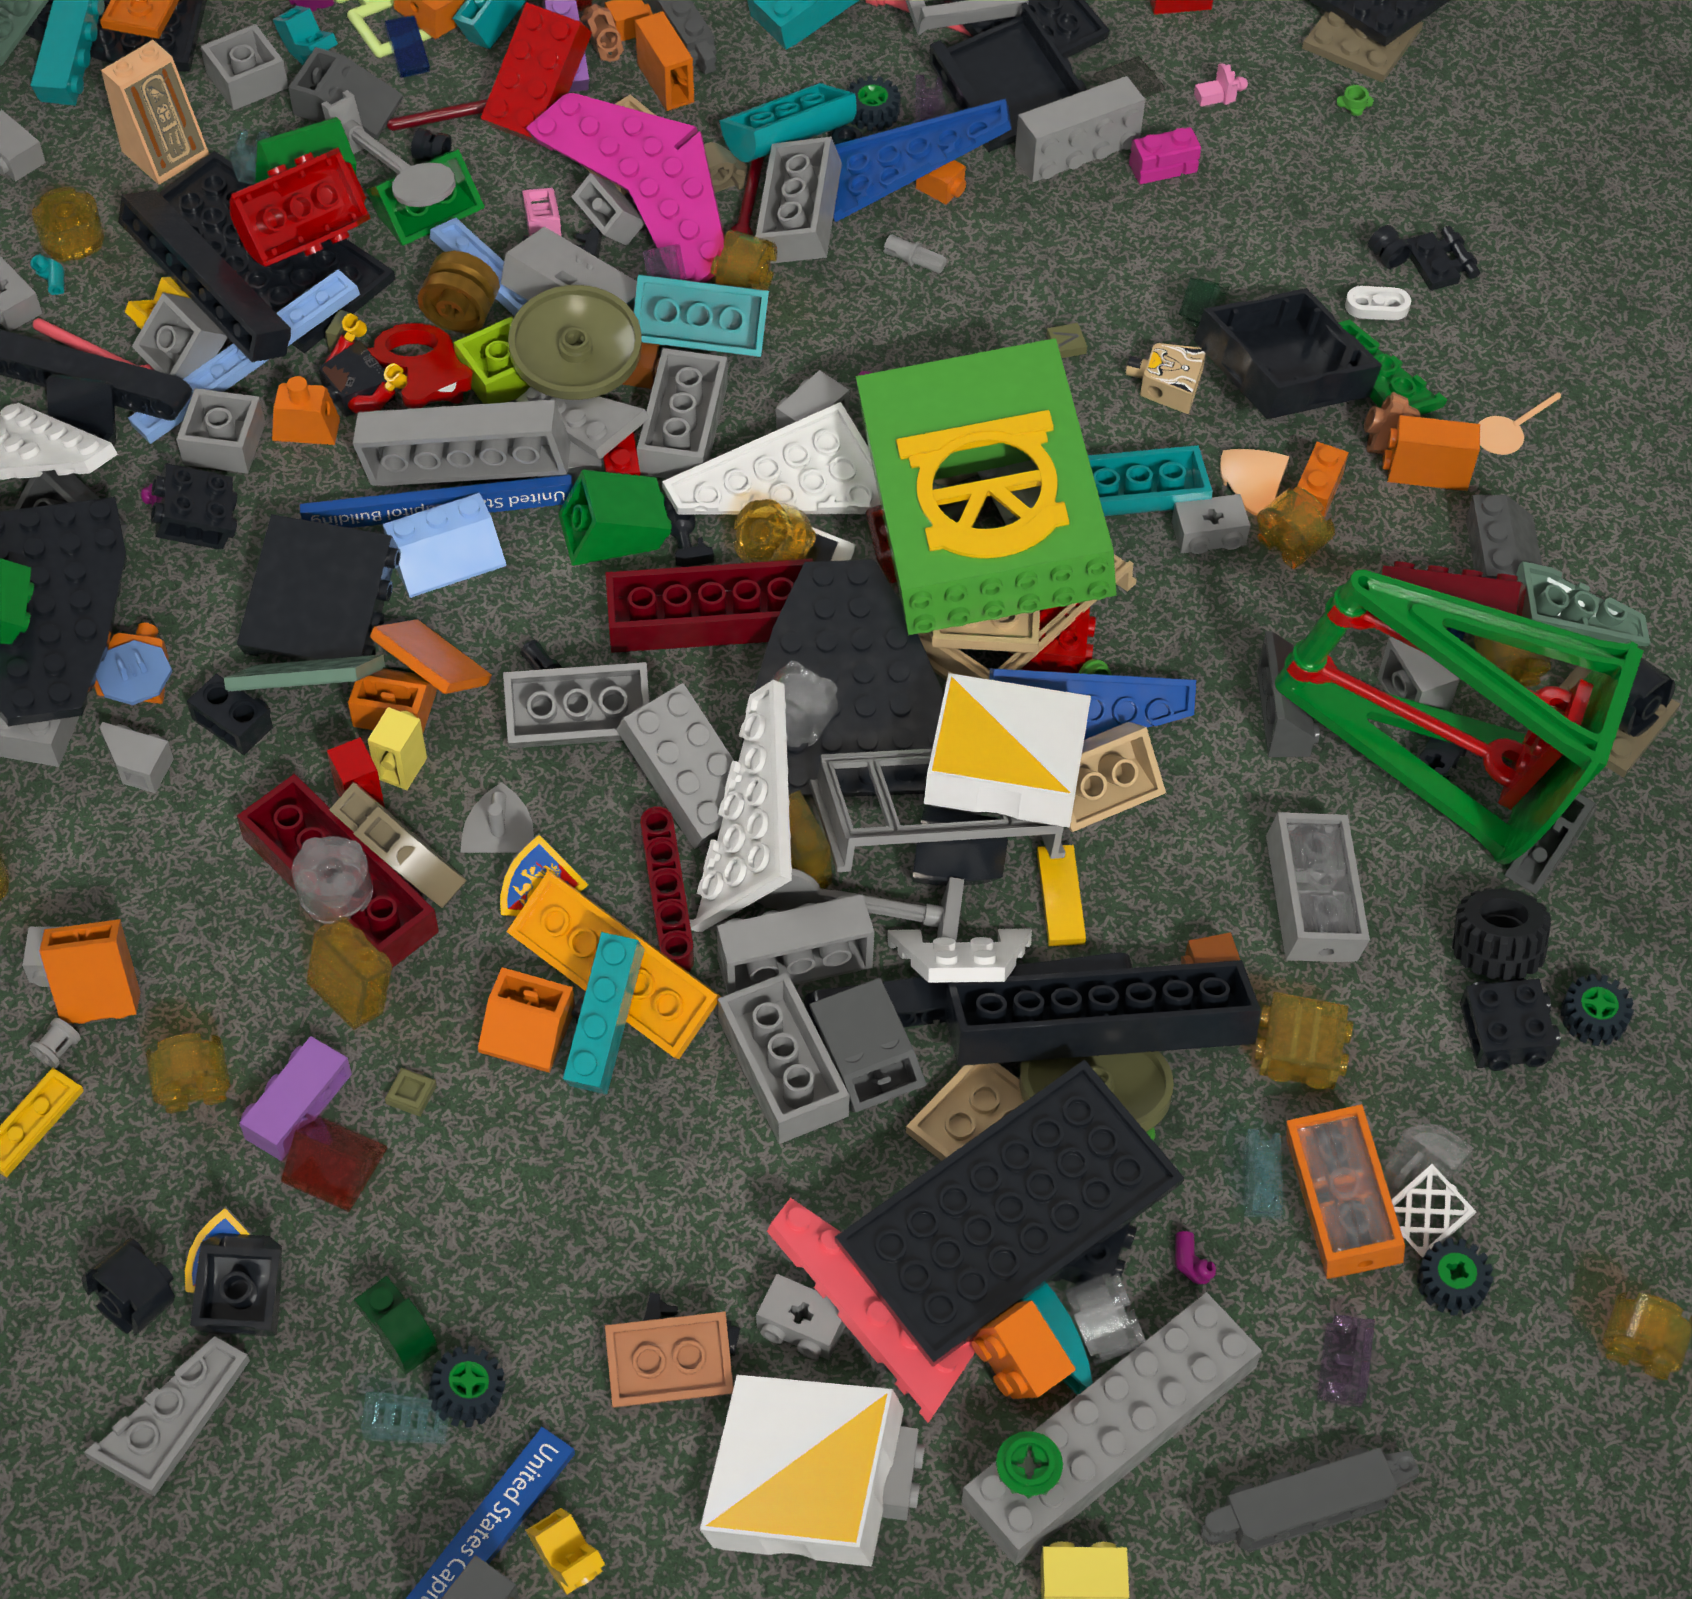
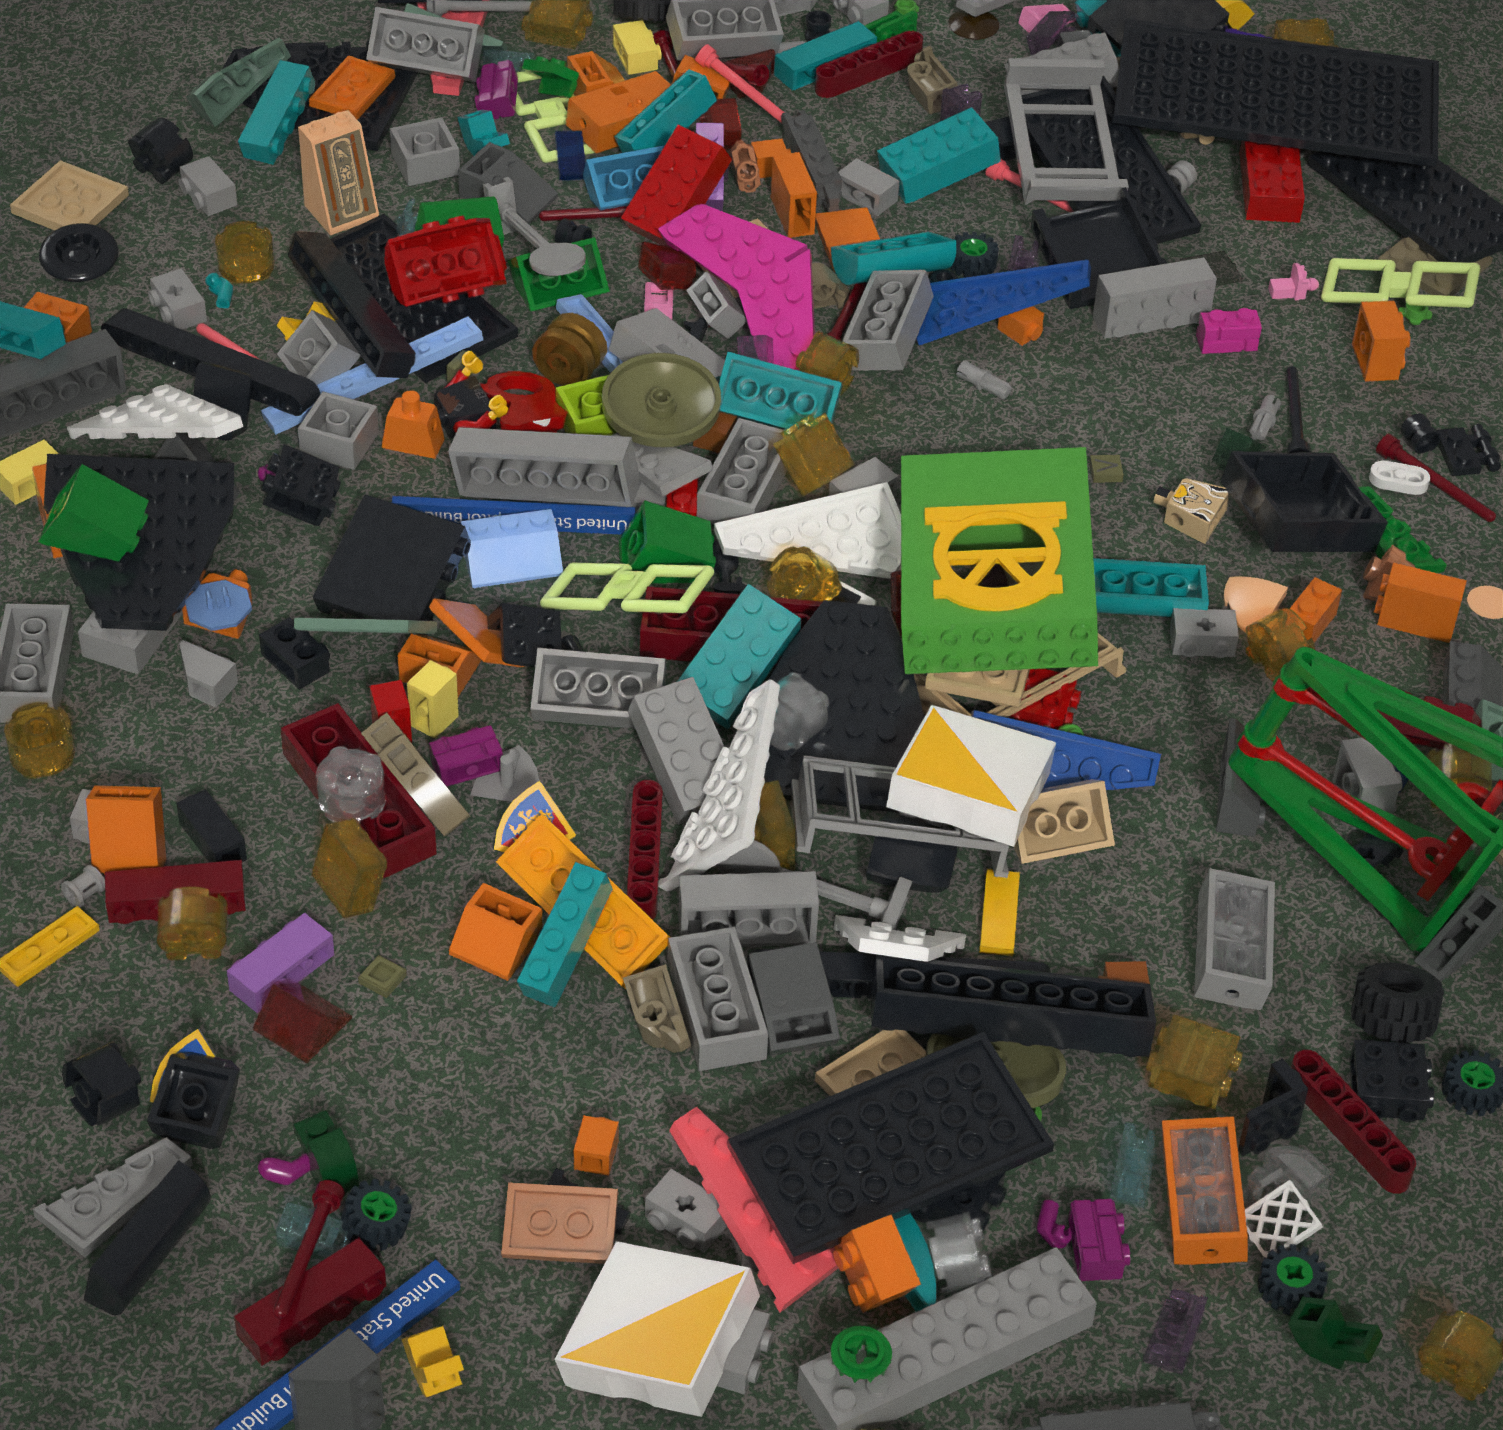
camera: 10 degrees right, 10 degrees down
(122, 1039) = (136, 892): none -> dark red brick
(184, 950) = (210, 828): none -> black brick
(222, 1470) = (146, 1240): none -> black brick
(352, 1351) = (282, 1171): none -> magenta arm
(408, 1379) = (326, 1200): none -> dark red piece
(416, 1506) = (324, 1295): none -> dark red brick
(447, 808) = (466, 755): none -> magenta brick
(469, 68) = (617, 177): none -> dark azure slope
(484, 650) = (524, 631): none -> black bracket
(542, 170) = (666, 266): none -> clear red slope
(583, 574) = (628, 586): none -> yellowish green bar
(688, 1256) = (596, 1145): none -> orange brick
(716, 1073) = (657, 1009): none -> dark tan piece
(725, 640) = (741, 653): none -> teal brick
(728, 93) = (845, 228): none -> orange tile
(743, 37) = (868, 187): none -> light grey brick
(752, 378) = (813, 452): none -> clear yellow brick
(1222, 253) = (1264, 417): none -> light grey axle
(1244, 1269) = (1097, 1240): none -> magenta brick
(1265, 283) = (1298, 443): none -> black piece
(1328, 144) = (1380, 341): none -> orange brick
(1335, 69) = (1401, 283): none -> yellowish green bar
(1362, 269) = (1391, 448): none -> dark red piece
(1410, 1071) = (1279, 1112): none -> black bracket
(1485, 1096) = (1355, 1123): none -> dark red beam
(1505, 1338) = (1328, 1337): none -> dark green brick

